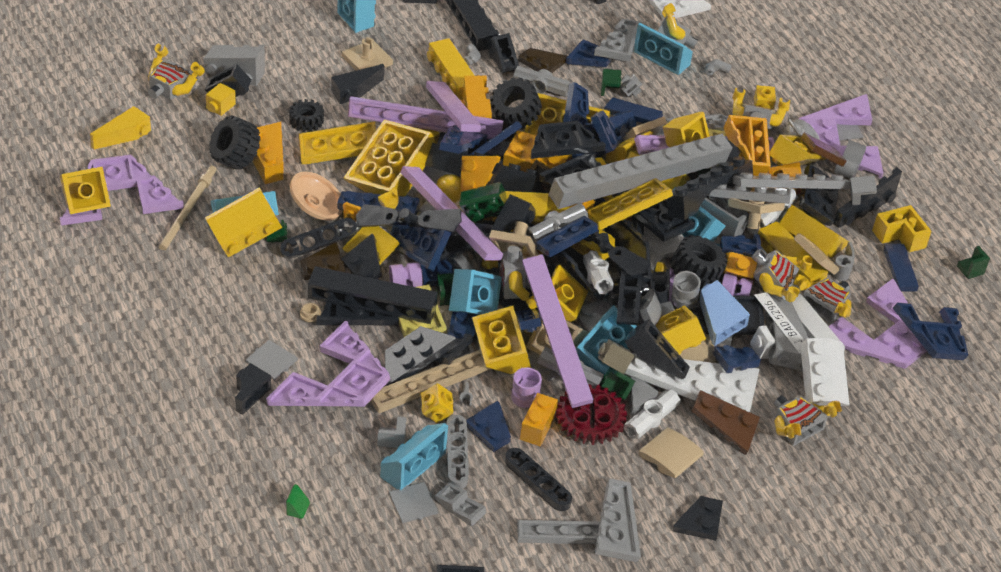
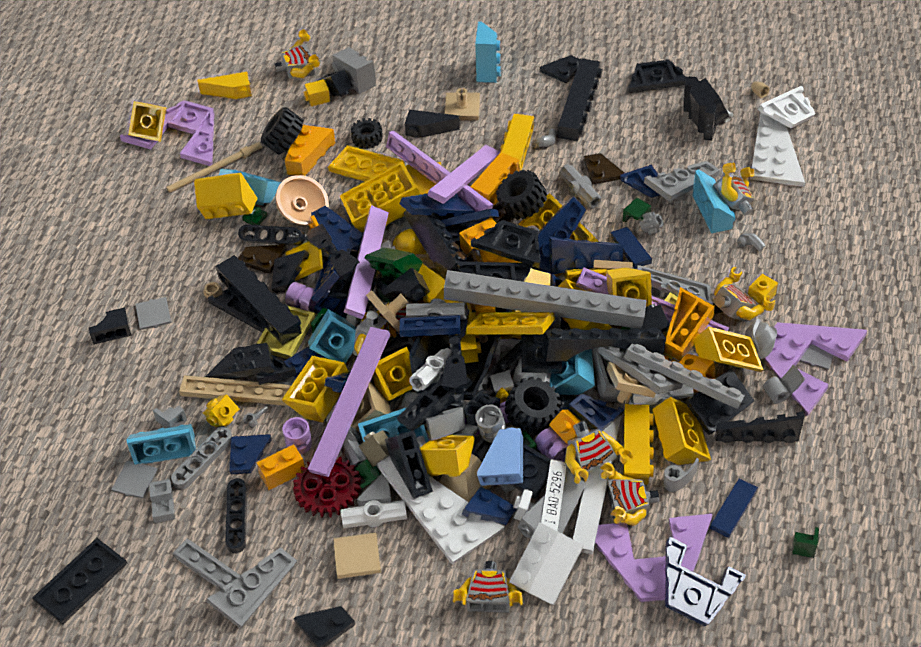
camera: 45 degrees right, 5 degrees up
(297, 503) = (55, 431): green slope -> none
(352, 387) = (179, 362): lavender wing -> none
(389, 199) = (341, 229): yellow tile -> none
(477, 171) = (423, 238): light orange wing -> none
(503, 52) = (570, 147): black arch -> none
(604, 128) = (566, 253): dark blue wing -> none
(733, 422) = (426, 555): reddish brown wing -> none
(816, 253) = (647, 453): tan tile -> none
(823, 149) = (757, 361): reddish brown tile -> none
(861, 186) = (746, 413): light grey panel -> none
(904, 225) = (765, 467): yellow brick -> none

